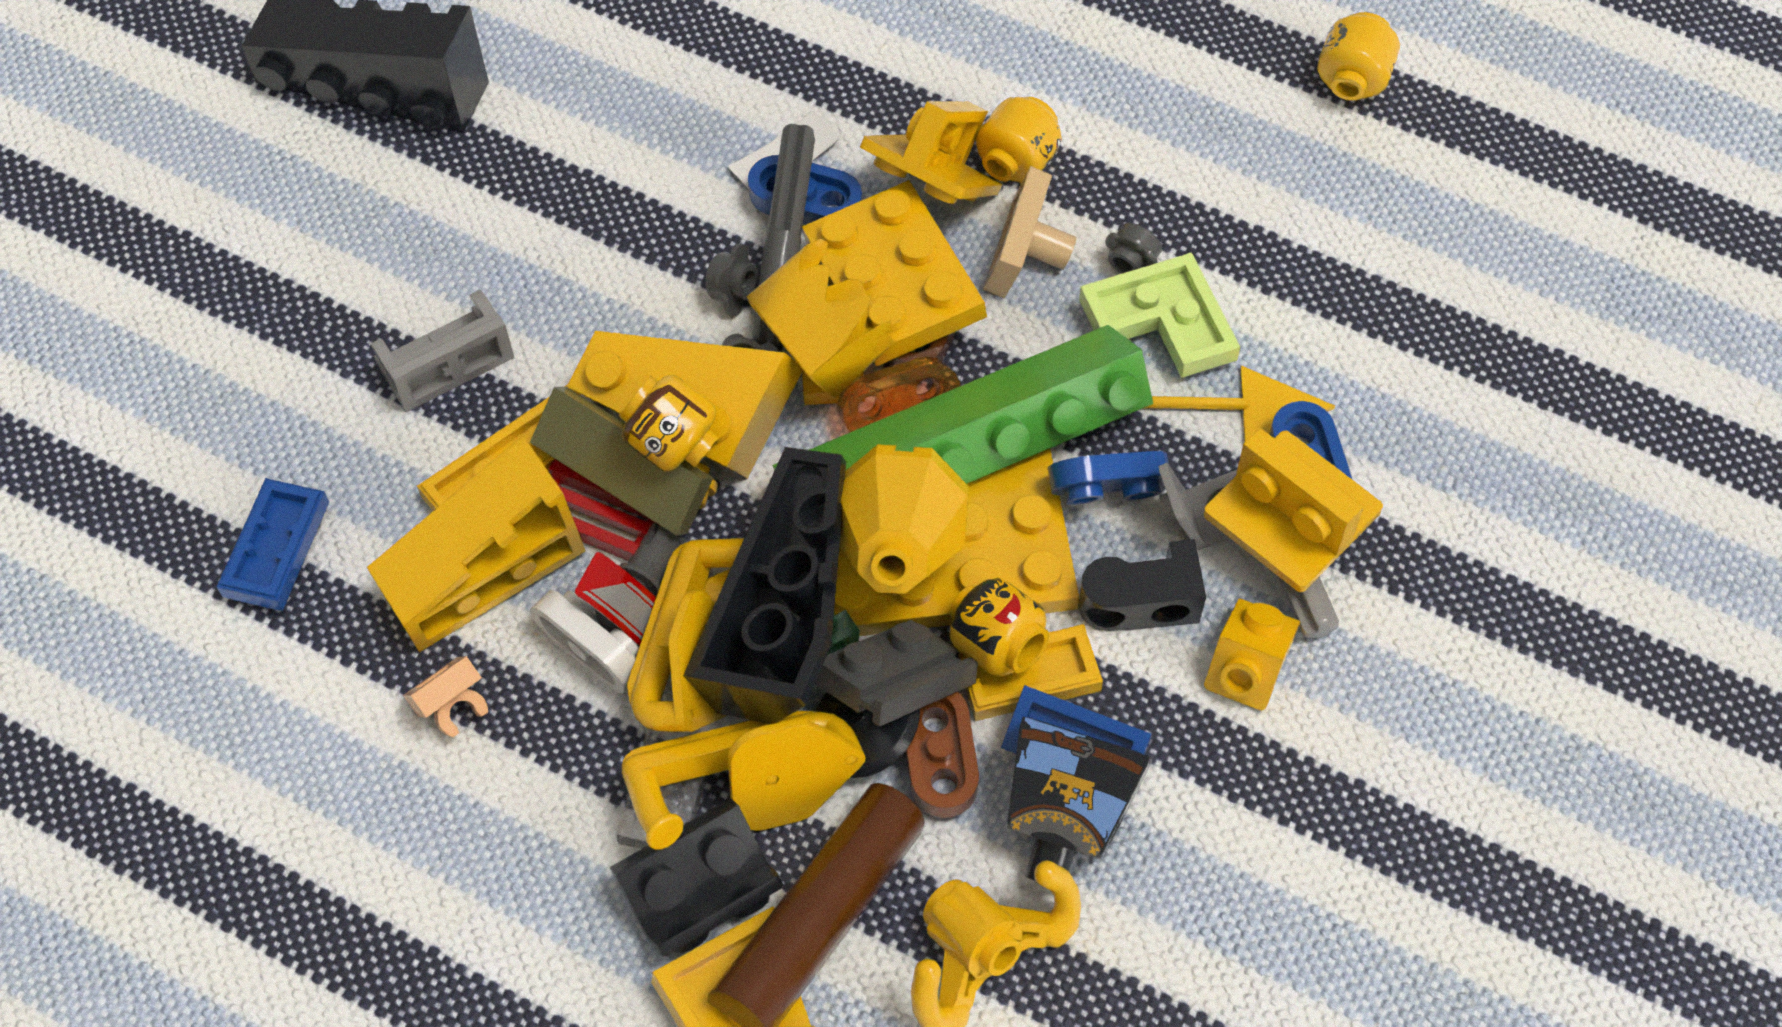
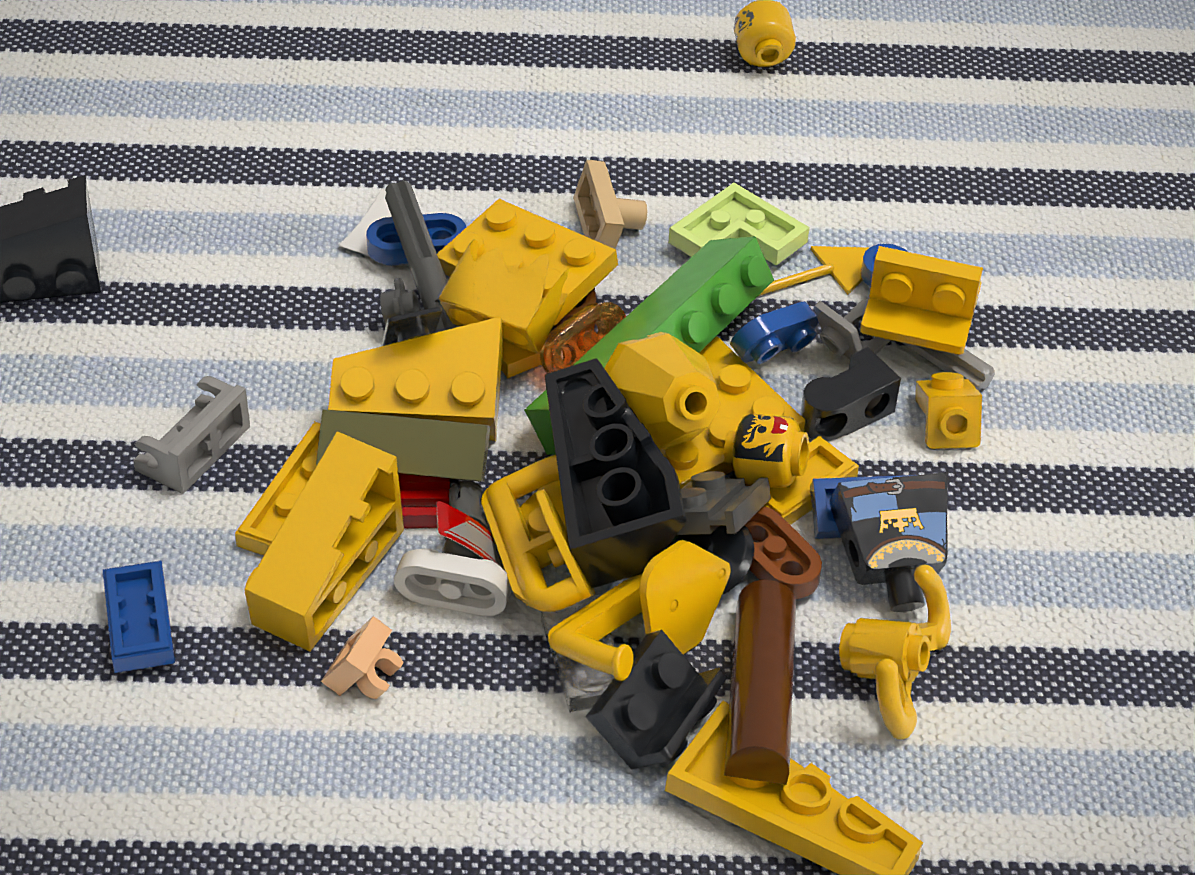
camera: 30 degrees left, 15 degrees down
(669, 423) = (443, 390): yellow head -> none
(696, 332) = (411, 325): none -> black piece
(937, 151) = (507, 161): yellow bracket -> none
(1018, 136) = (554, 152): yellow head -> none
(1132, 248) = (686, 195): dark grey plate -> none

